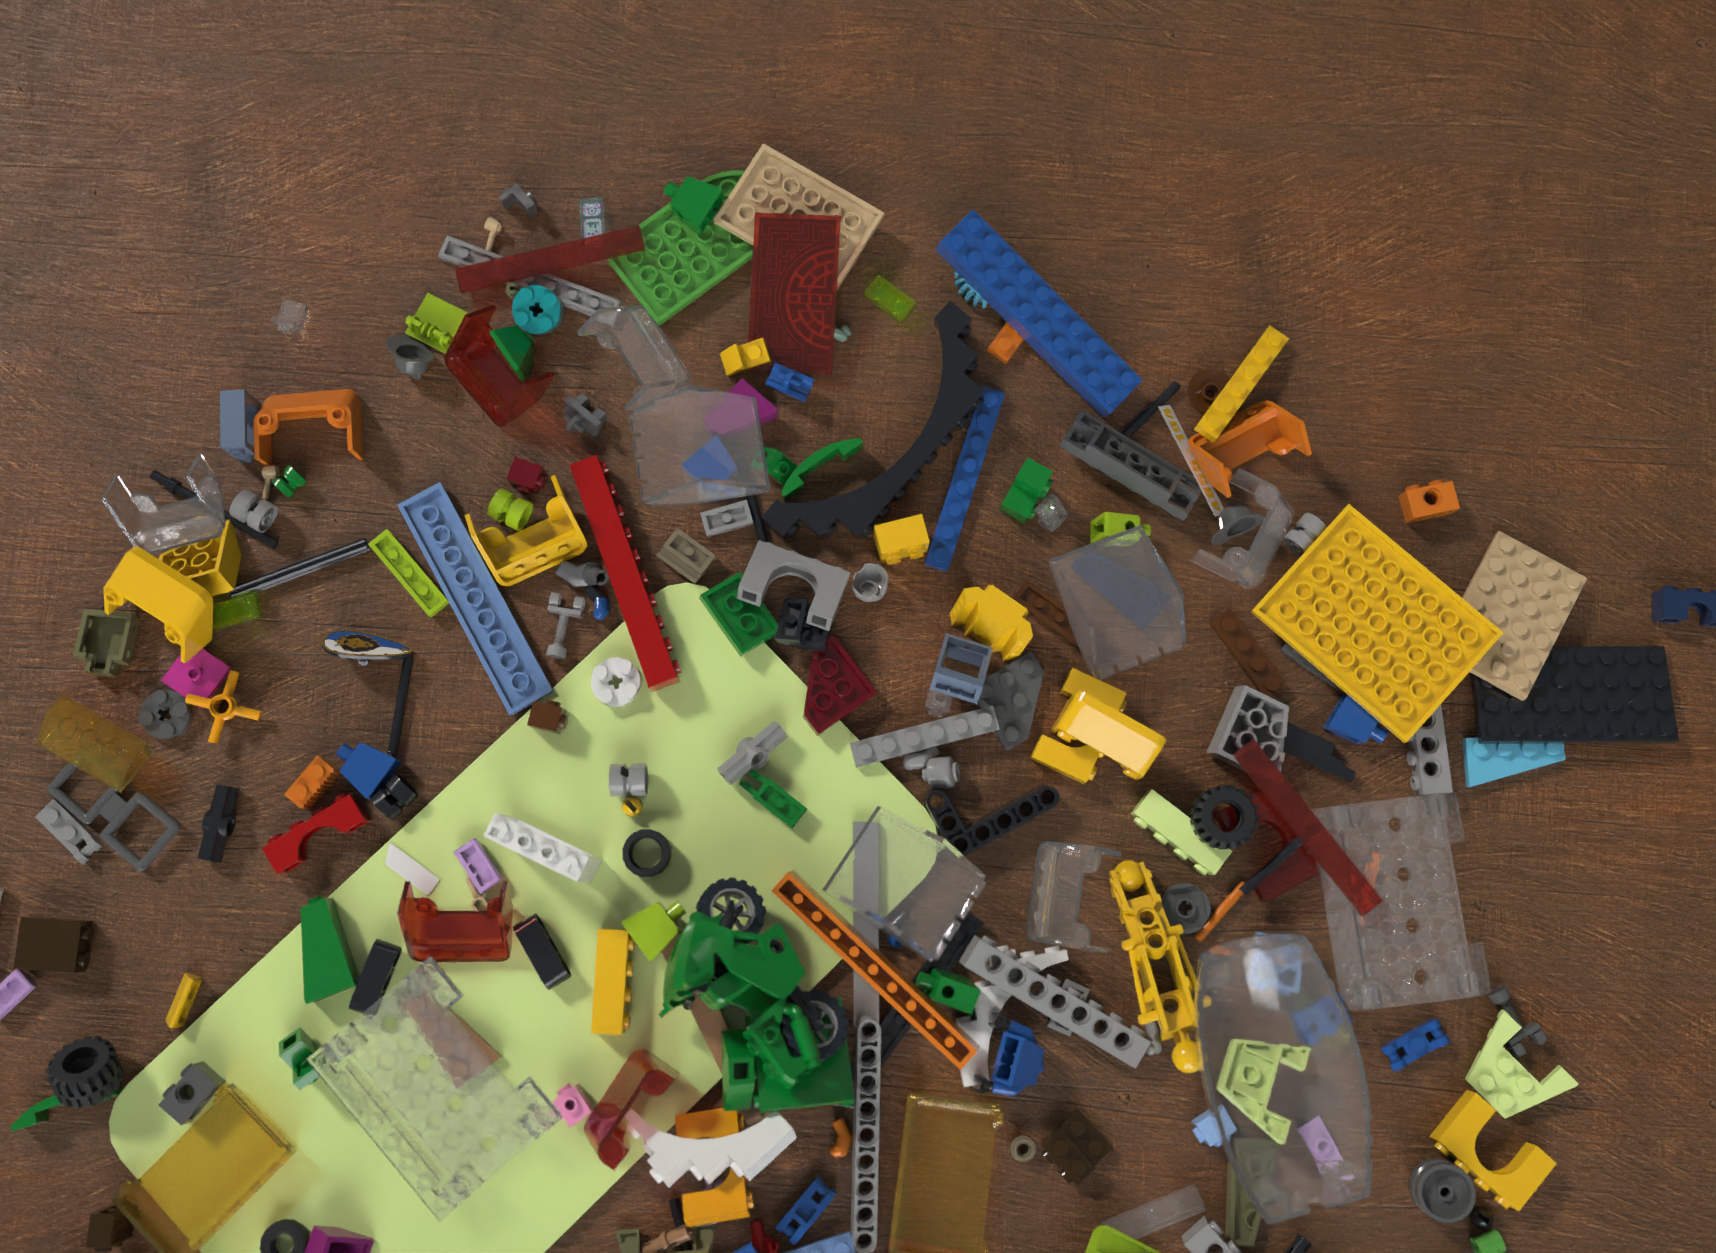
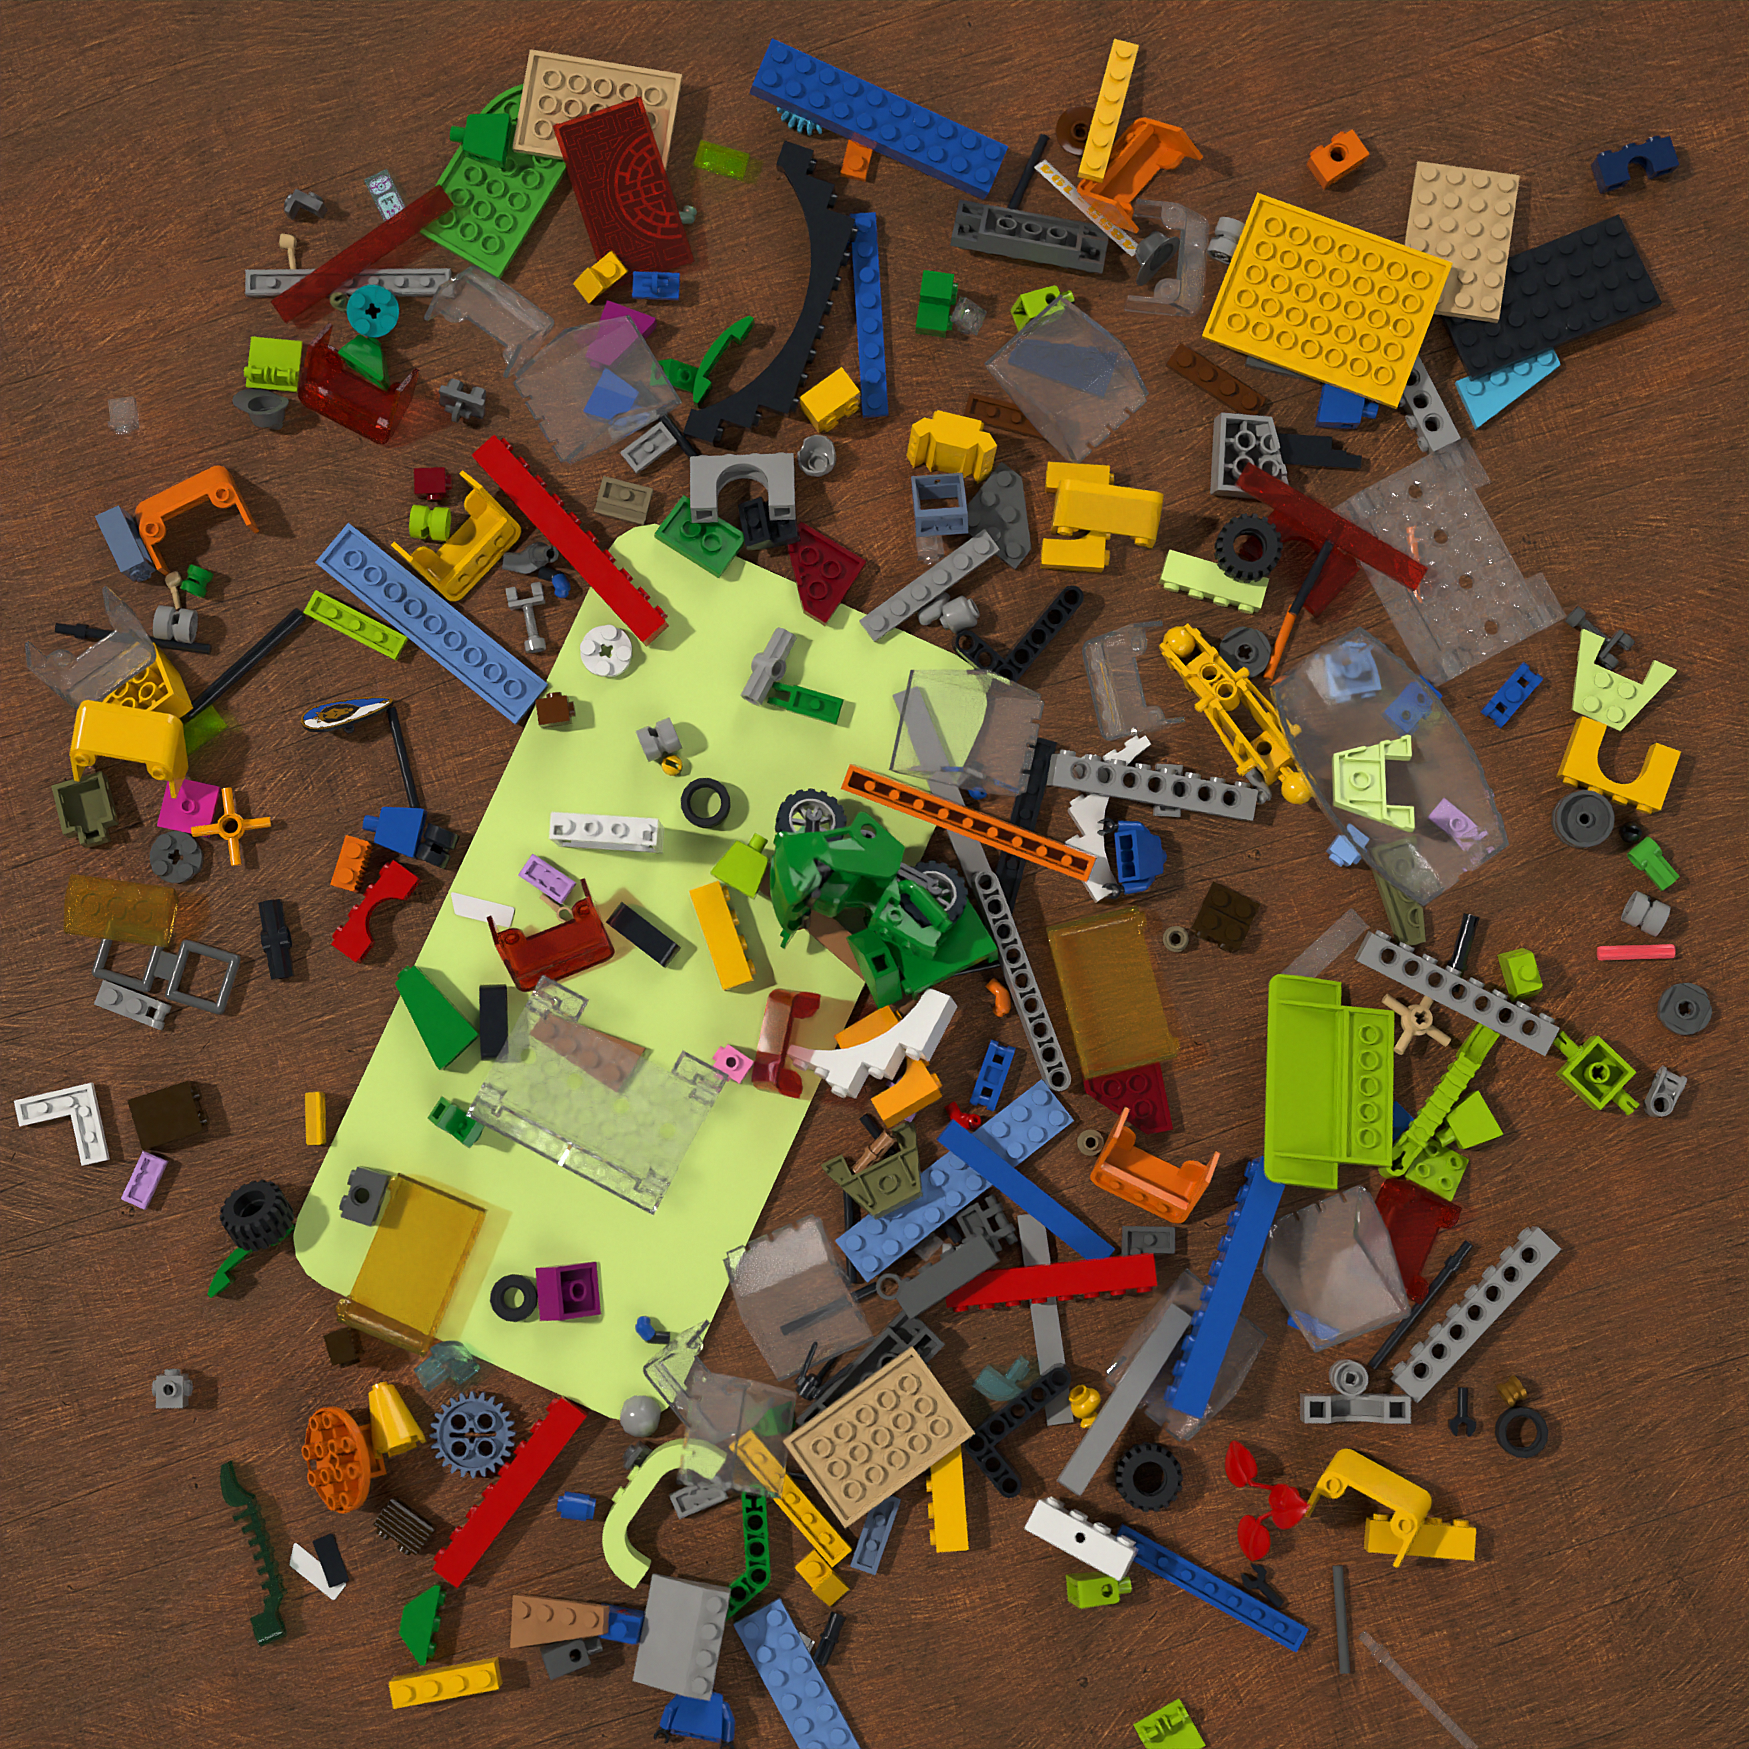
camera: 20 degrees left, 5 degrees up
(949, 989) = (1047, 815): green torso -> none

